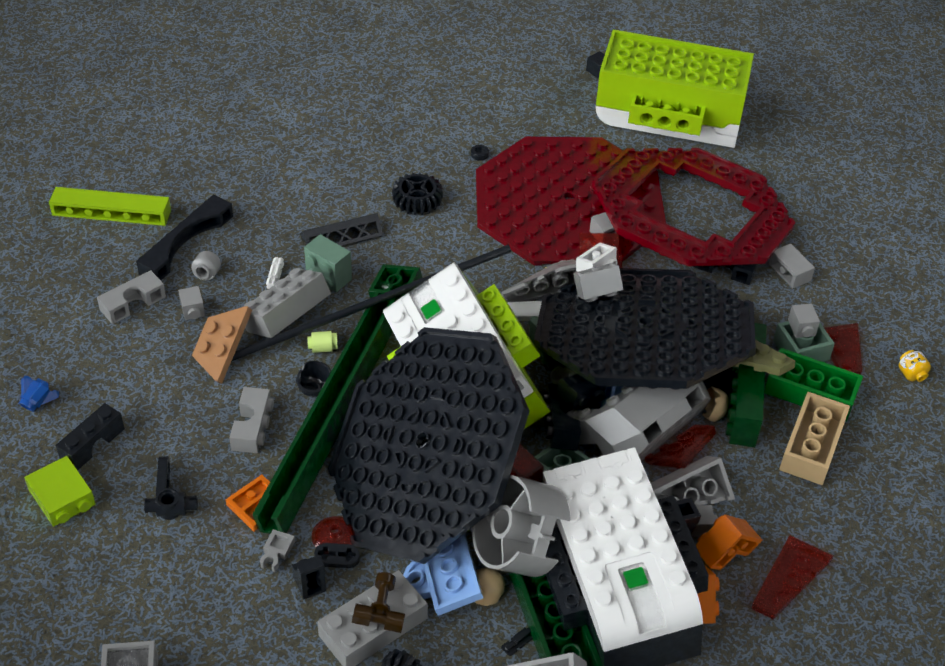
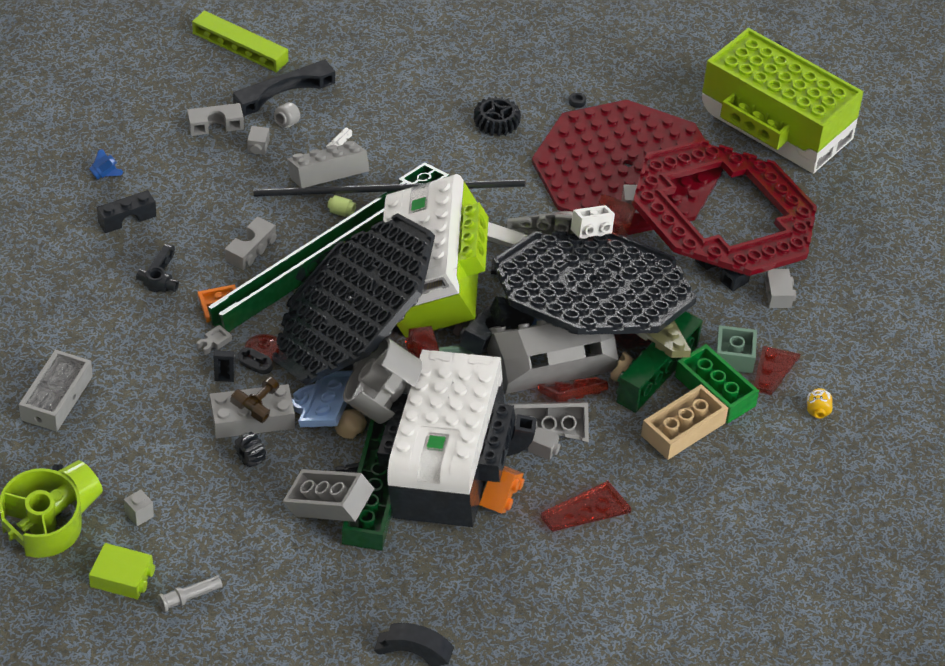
camera: 25 degrees right, 0 degrees up
(60, 491) = (85, 241): lime brick -> none
(220, 340) = (261, 176): medium nougat wing -> none
(312, 377) = (313, 227): black hair -> none
(331, 260) = (381, 146): sand green brick -> none
(345, 225) = (414, 121): black fence -> none
(598, 281) = (579, 235): light grey brick -> none
(725, 540) = (551, 461): orange brick -> none
(803, 320) = (738, 329): light grey brick -> none

